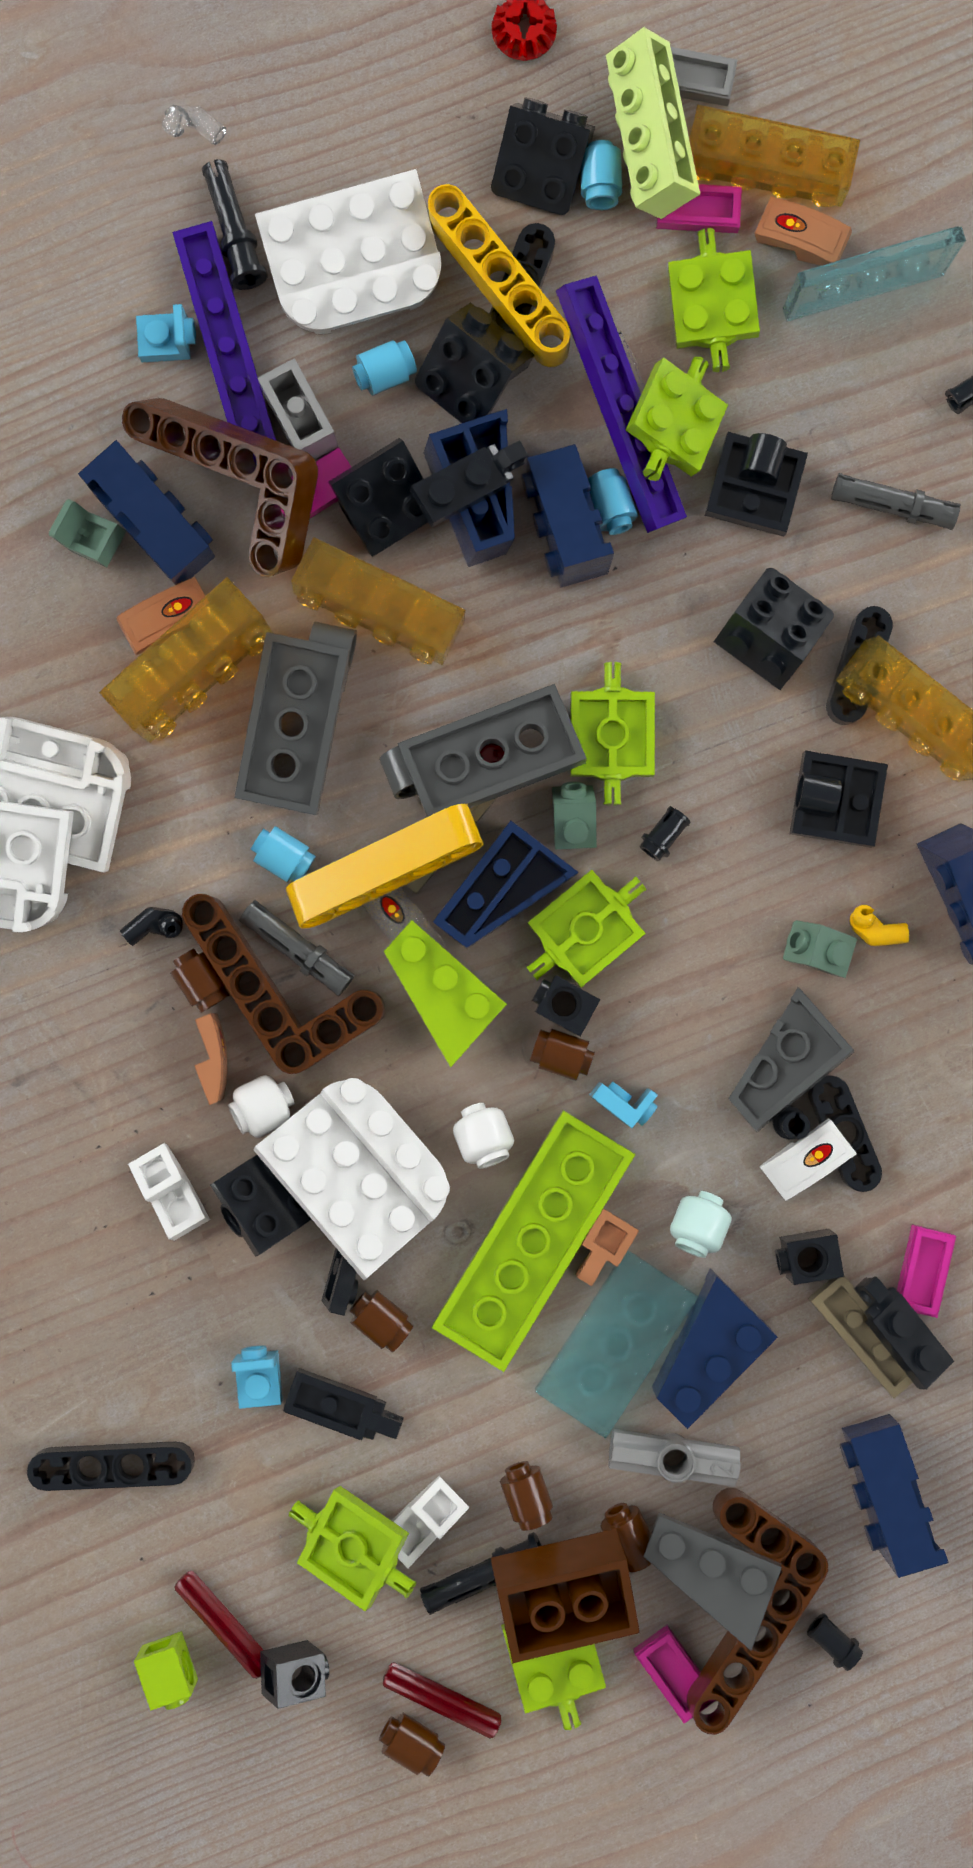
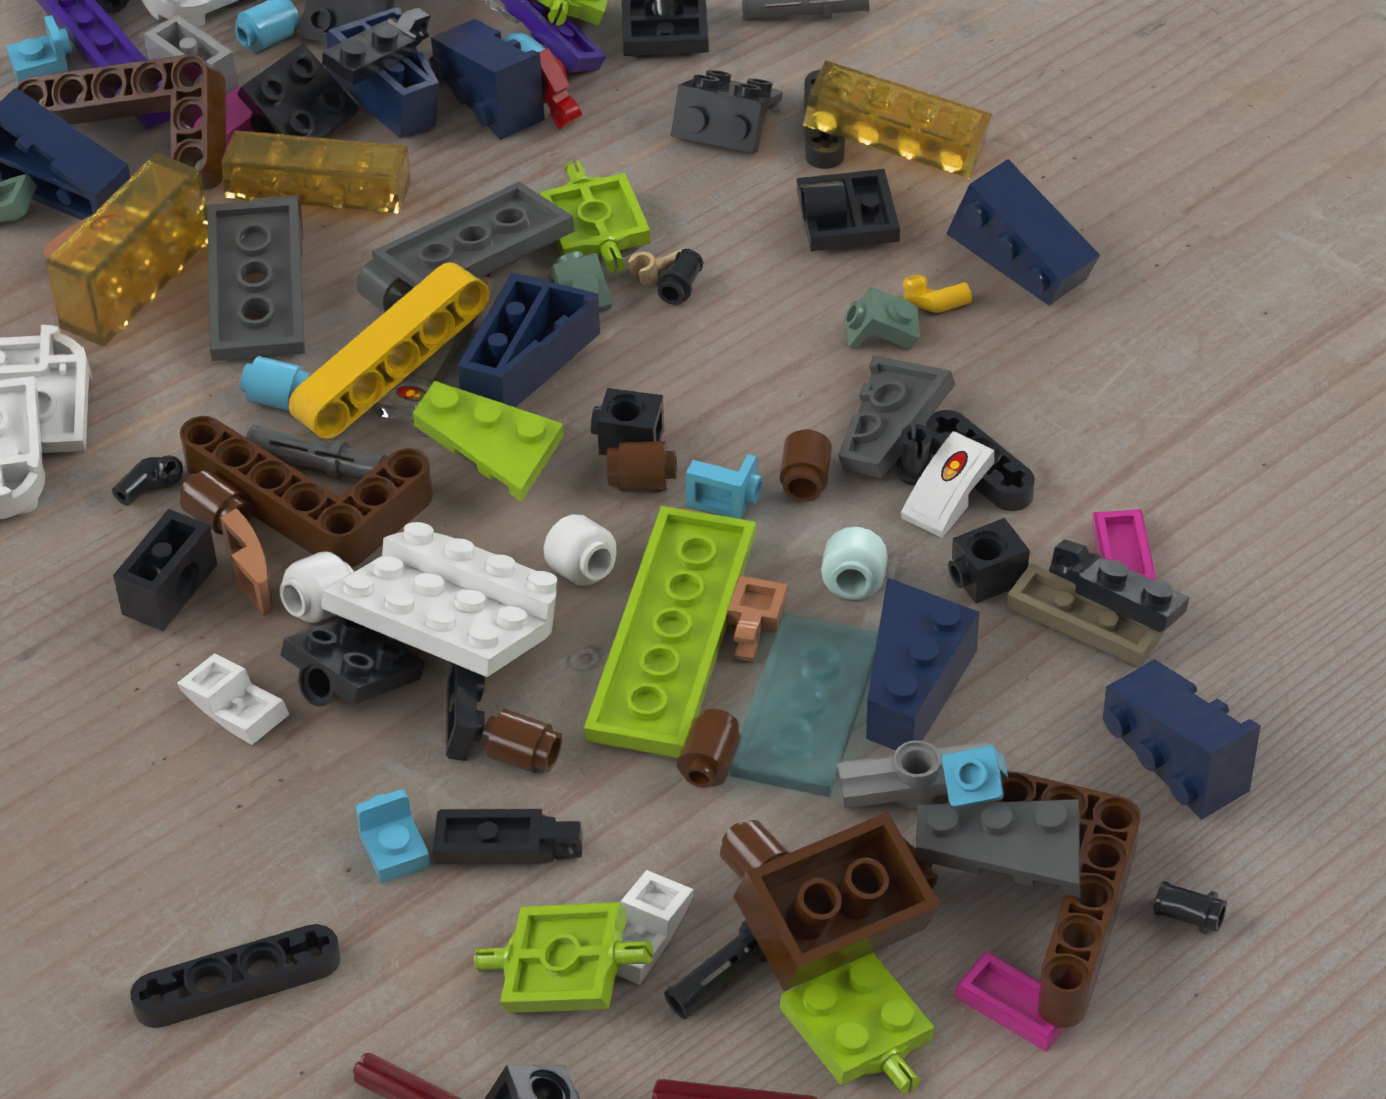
camera: 15 degrees left, 40 degrees down
(139, 1056) = (165, 569): none -> black brick
(522, 1382) = (709, 748): none -> reddish brown brick
(586, 928) = (626, 358): lime plate -> none
(622, 562) = (554, 83): none -> red plate
(653, 805) = (647, 266): none -> tan hand
(698, 1099) = (805, 464): none -> reddish brown brick
(710, 1521) = (974, 776): none -> medium azure bracket

